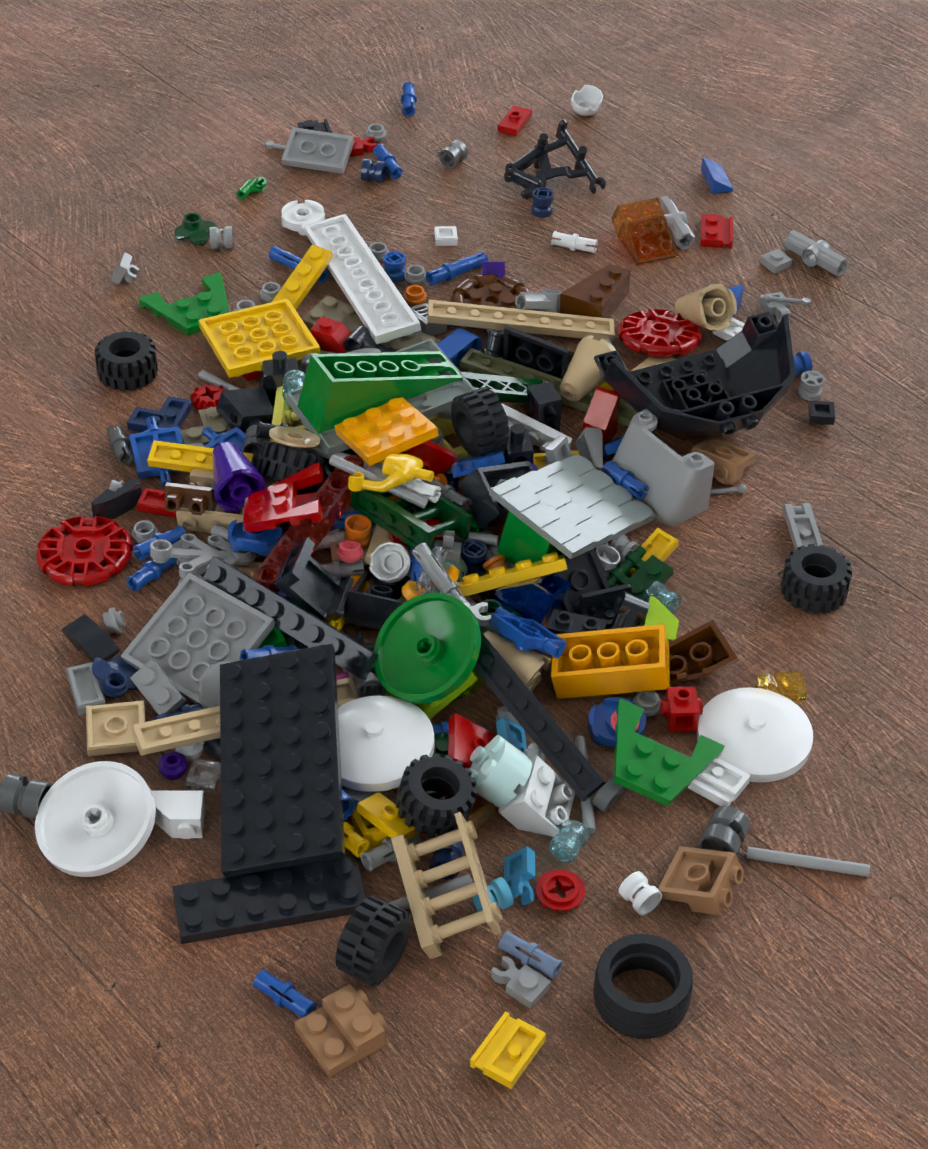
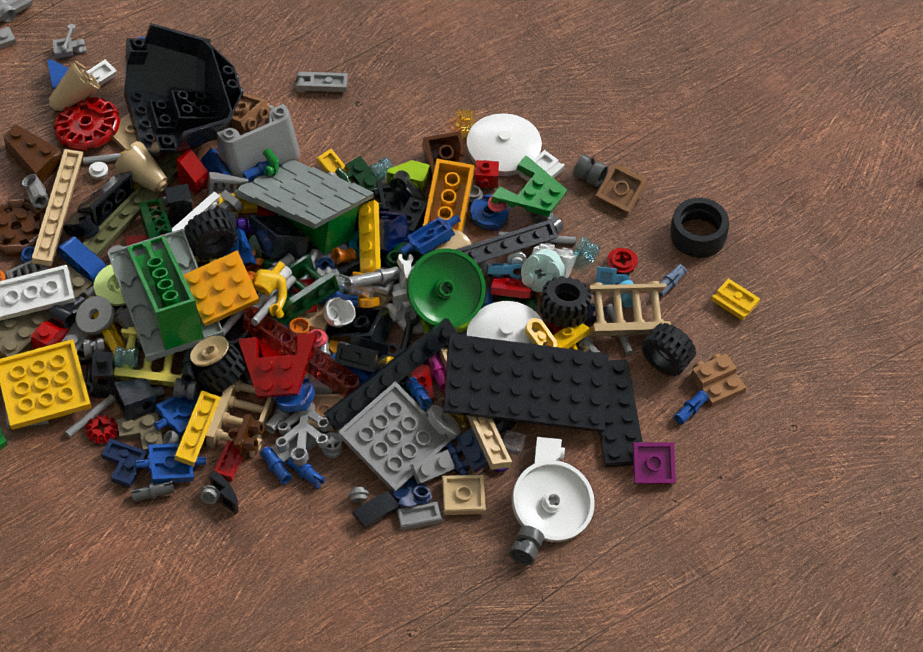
camera: 85 degrees left, 10 degrees up
(80, 533) = (277, 527): red plate -> none
(126, 360) = (49, 468): black tyre -> none
(143, 531) = (260, 471): light grey plate -> none
(167, 941) = (654, 463): none -> magenta plate
(233, 477) = (232, 399): dark purple cone -> none
(361, 766) = (542, 335): none -> yellow plate
(523, 984) = (687, 287): light grey plate -> none
(628, 480) = (273, 167): none -> green arm
(640, 893) = (630, 220): white wheel -> none
(808, 861) = (608, 135): light grey bar -> none
(816, 578) = (377, 93): black tyre -> none

